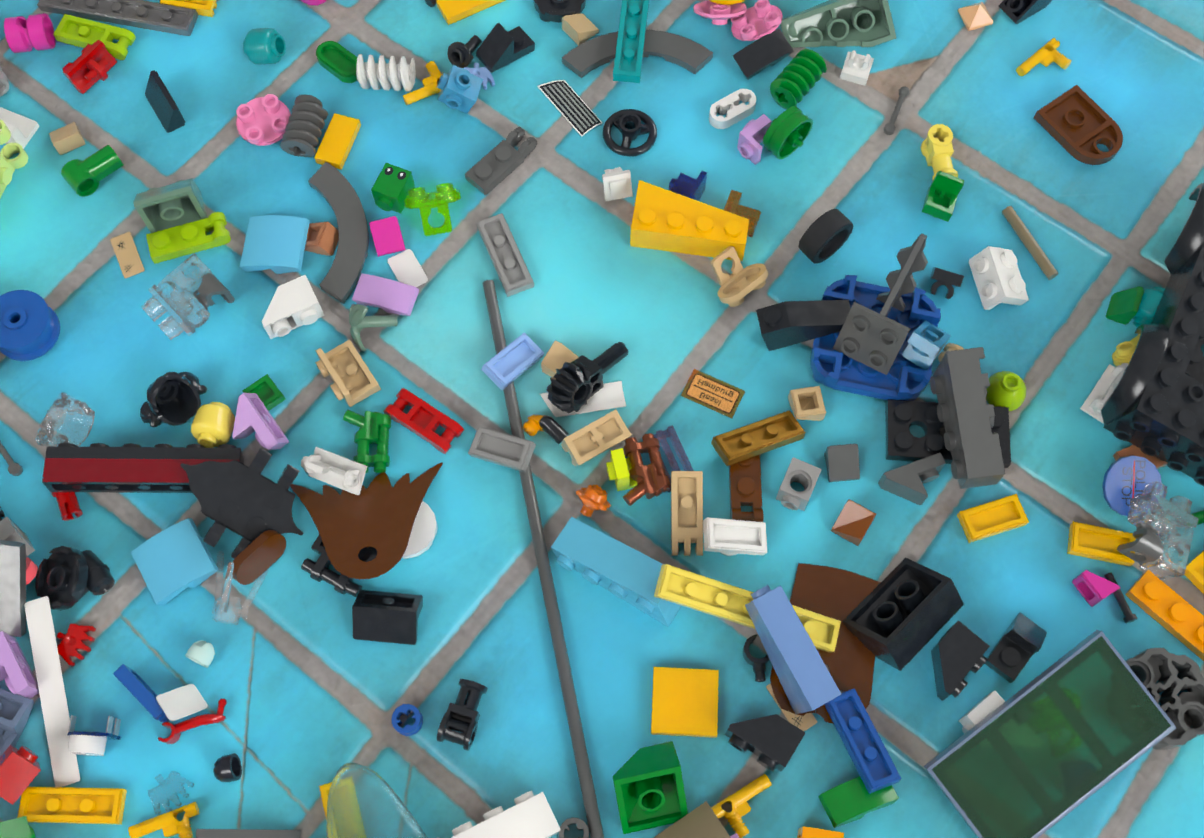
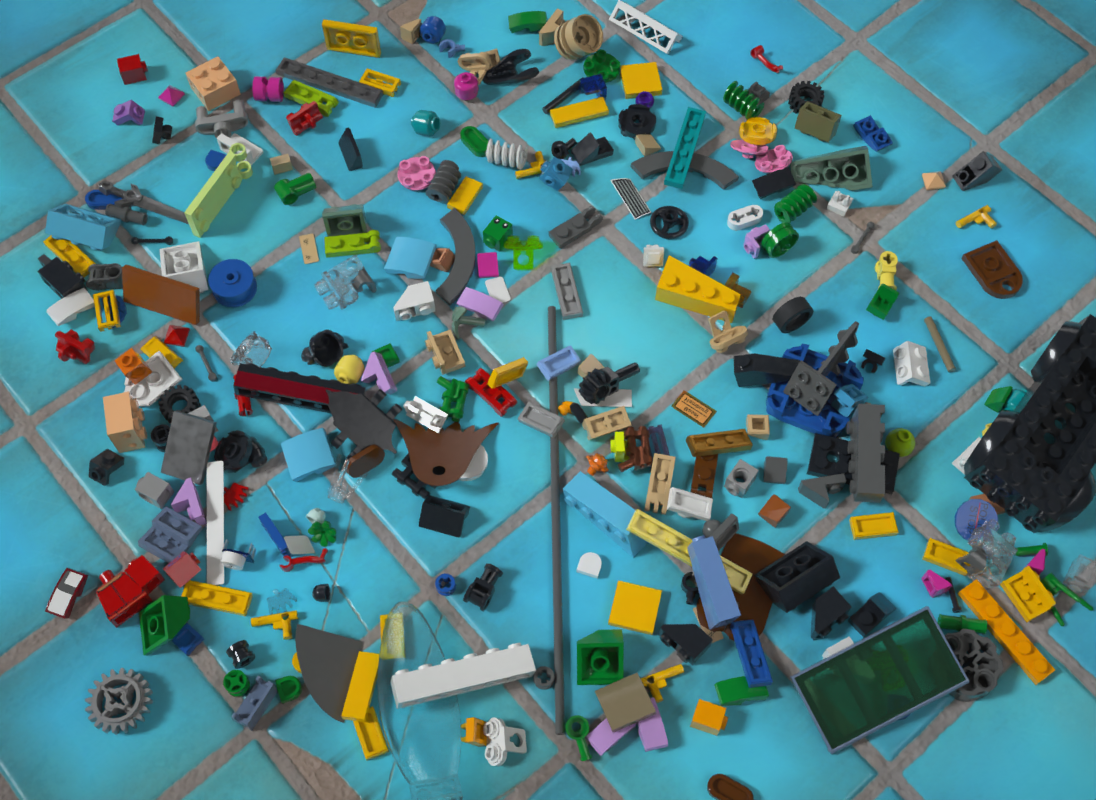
camera: 10 degrees right, 5 degrees down
(214, 676) = (322, 532): none -> green plant
(442, 389) = (507, 372): none -> yellow tile
(609, 650) = (589, 565): none -> white tile
(781, 569) = (721, 532): none -> dark grey tile
(1144, 638) = (962, 622): none -> green pin

